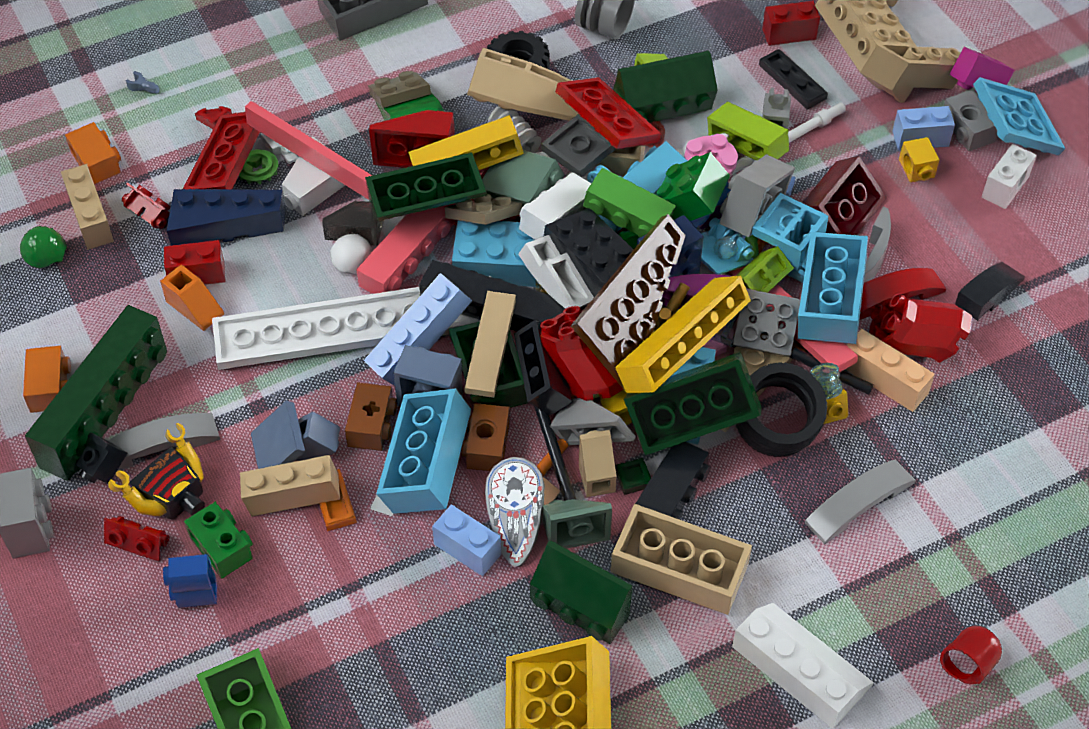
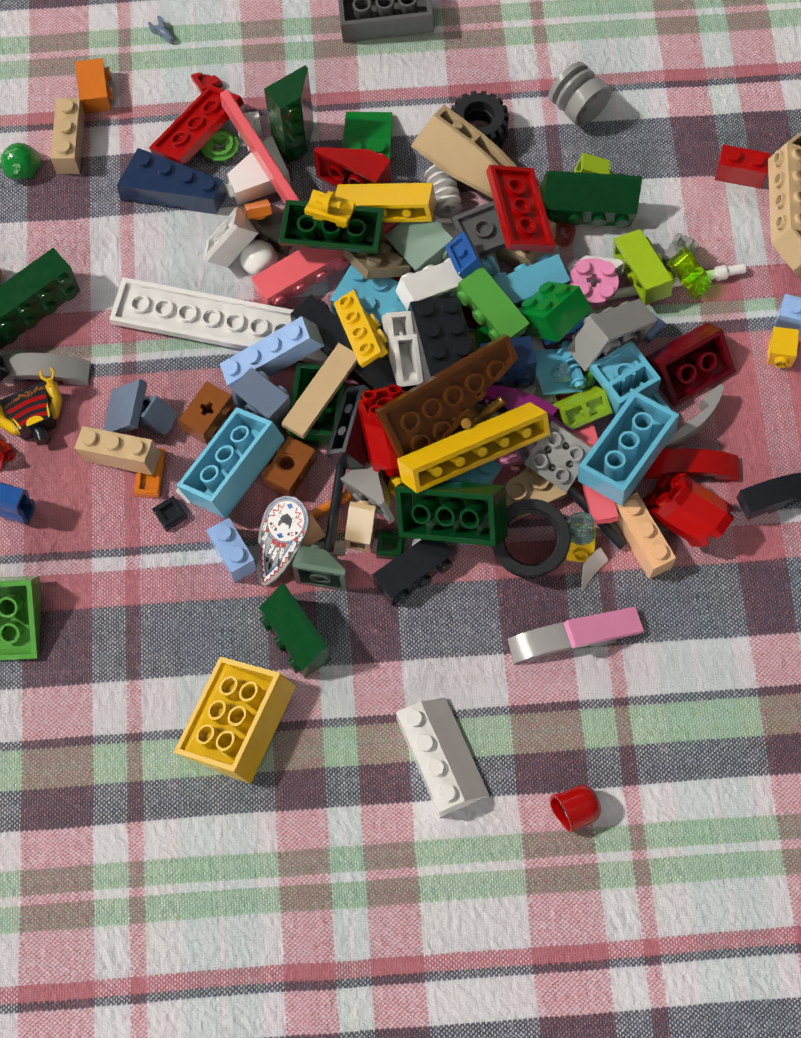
camera: 25 degrees right, 15 degrees up
(139, 199) = (112, 144): hinge -> none
(190, 297) = (113, 253): orange slope -> none
(200, 258) = (129, 222): red brick -> none
(216, 535) = (48, 473): green brick -> none
(314, 242) = (229, 239): none -> white slope
(326, 102) = (291, 114): none -> dark green slope
(330, 206) = (257, 210): none -> orange slope
(376, 532) = (169, 513): none -> black tile
(399, 89) = (366, 113): dark tan plate -> none
(420, 165) = (330, 208): none -> yellow hips
(503, 269) = (361, 329): none -> yellow bracket
(576, 166) = (463, 255): none -> blue plate
(681, 559) = (387, 634): tan brick -> none
(793, 78) = (716, 223): black tile -> none
(801, 127) = (689, 273): none -> clear neon green slope
(851, 417) = (592, 566): none -> white sticker
(898, 468) = (603, 627): none -> bright pink tile

